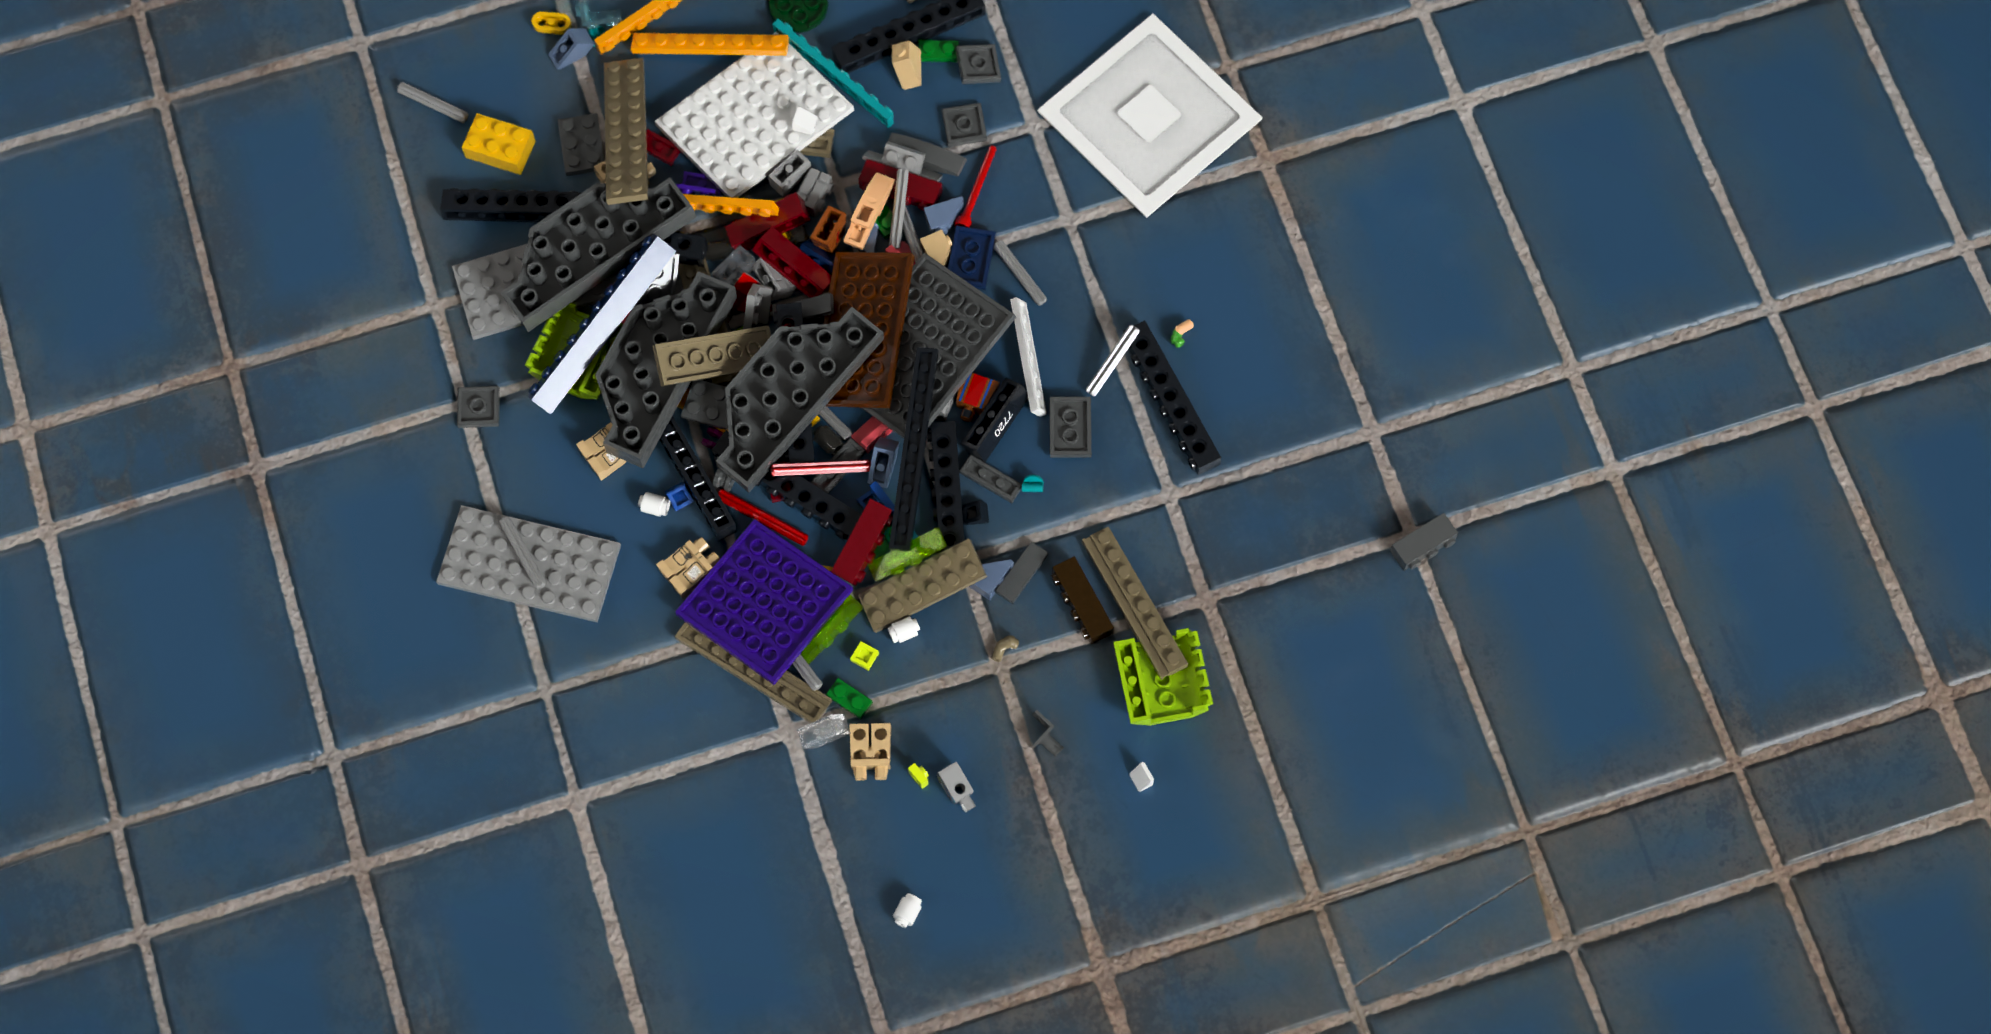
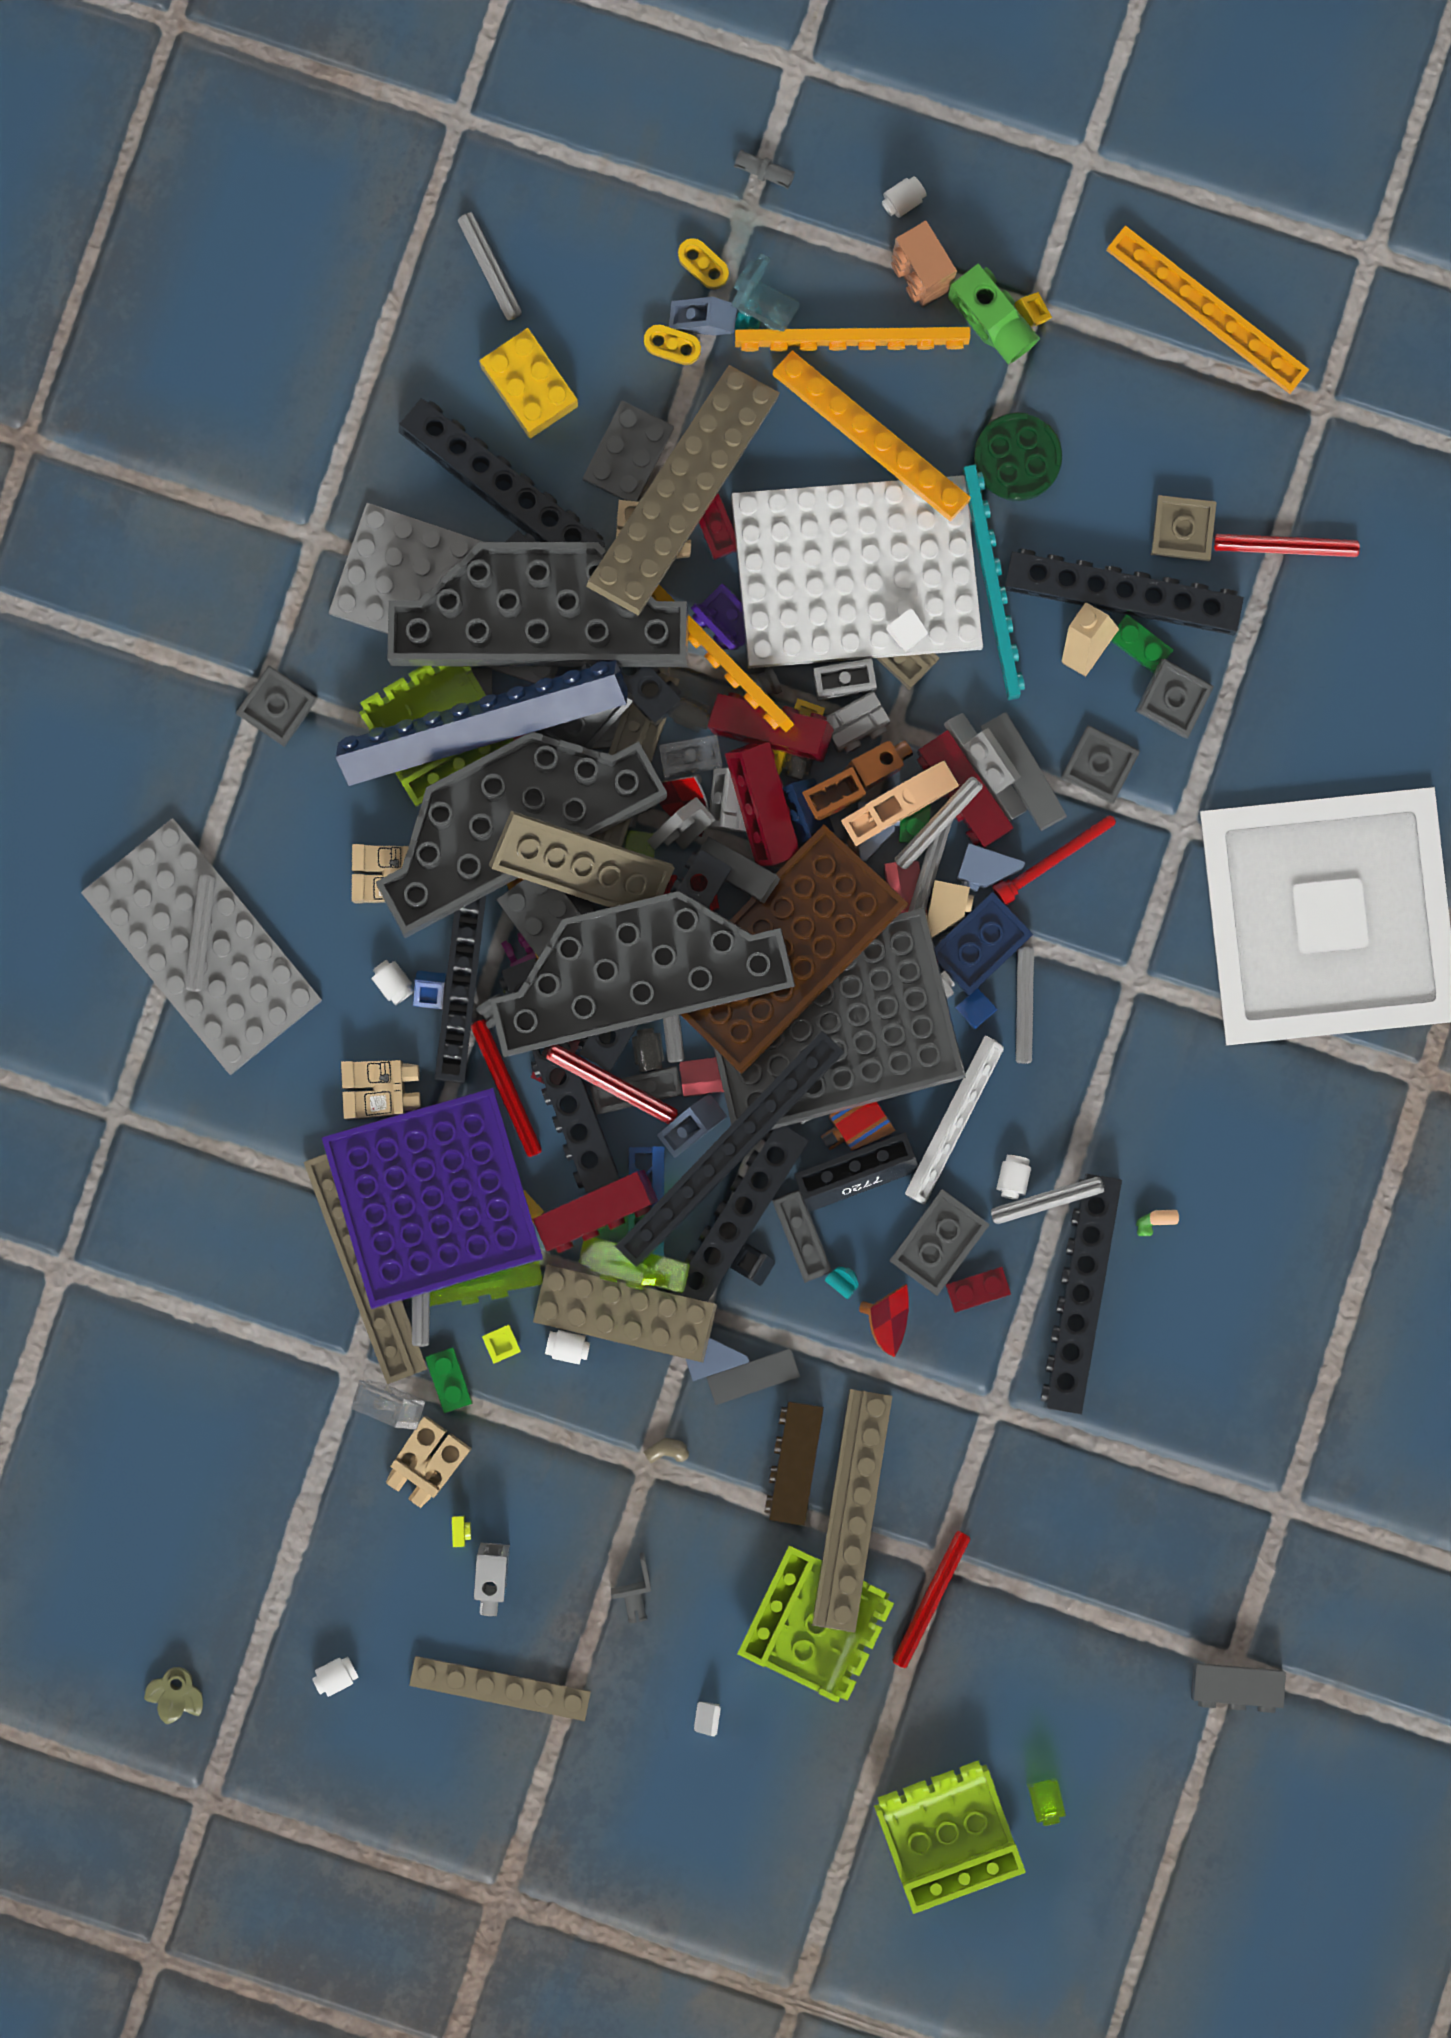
camera: 30 degrees right, 15 degrees up
(564, 72) = (672, 345): none -> yellow plate
(820, 995) = (172, 1699): none -> olive plate
(844, 199) = (871, 769): none -> dark orange torso
(996, 291) = (976, 1008): none -> blue slope
(1009, 848) = (500, 1688): none -> dark tan plate
(1073, 485) = (888, 1319): none -> shield
(1084, 363) = (1014, 1177): none -> white brick
(1111, 437) = (978, 1289): none -> dark red plate
(1217, 621) = (931, 1599): none -> red axle
(1328, 739) = (948, 1836): none -> lime slope
(1369, 682) = (1046, 1801): none -> clear neon green brick

